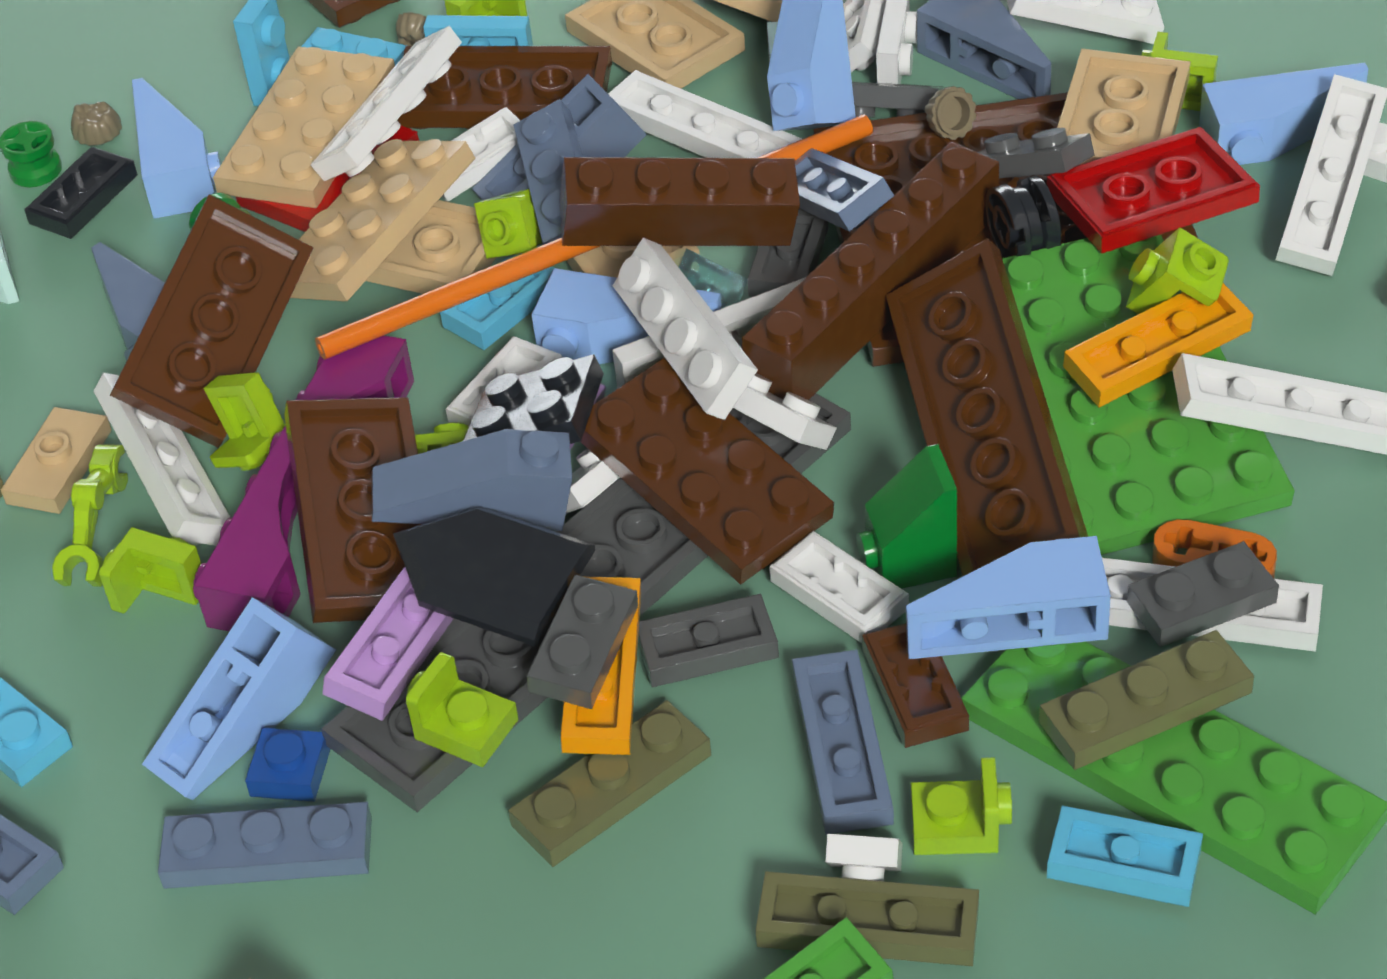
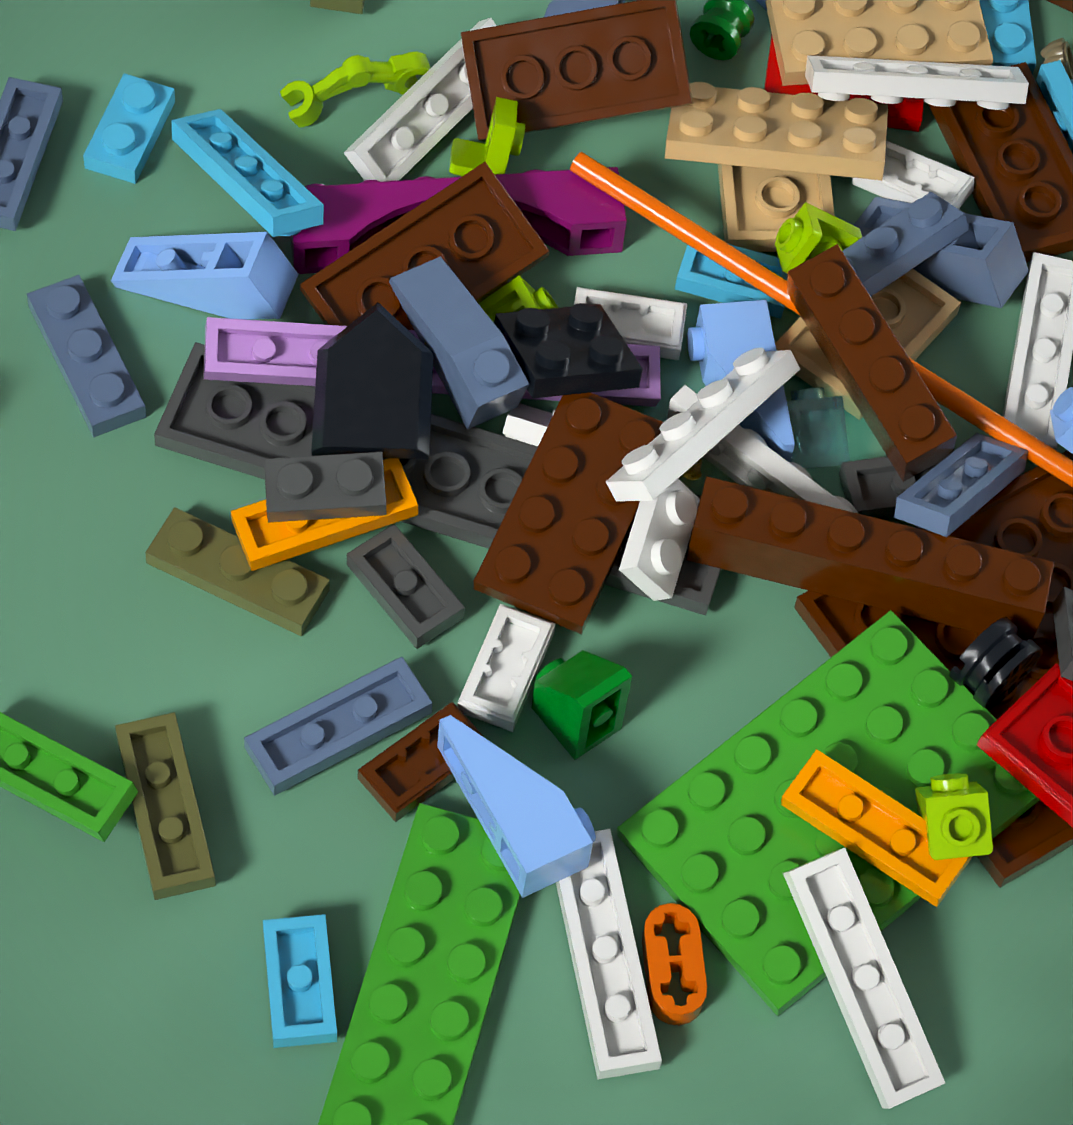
camera: 55 degrees right, 15 degrees up
(55, 460) = (406, 29): tan plate -> none
(149, 564) = (311, 139): lime bracket -> none
(151, 613) = (248, 173): none -> medium azure plate
(287, 765) = (165, 335): blue plate -> none
(457, 714) = (234, 429): lime bracket -> none
(863, 855) = (222, 779): white plate -> none
(960, 814) = (300, 841): lime bracket -> none
(984, 406) = (726, 710): reddish brown plate -> none
(1145, 699) = (458, 946): olive plate -> none
(1202, 594) = (599, 959): dark grey plate -> none

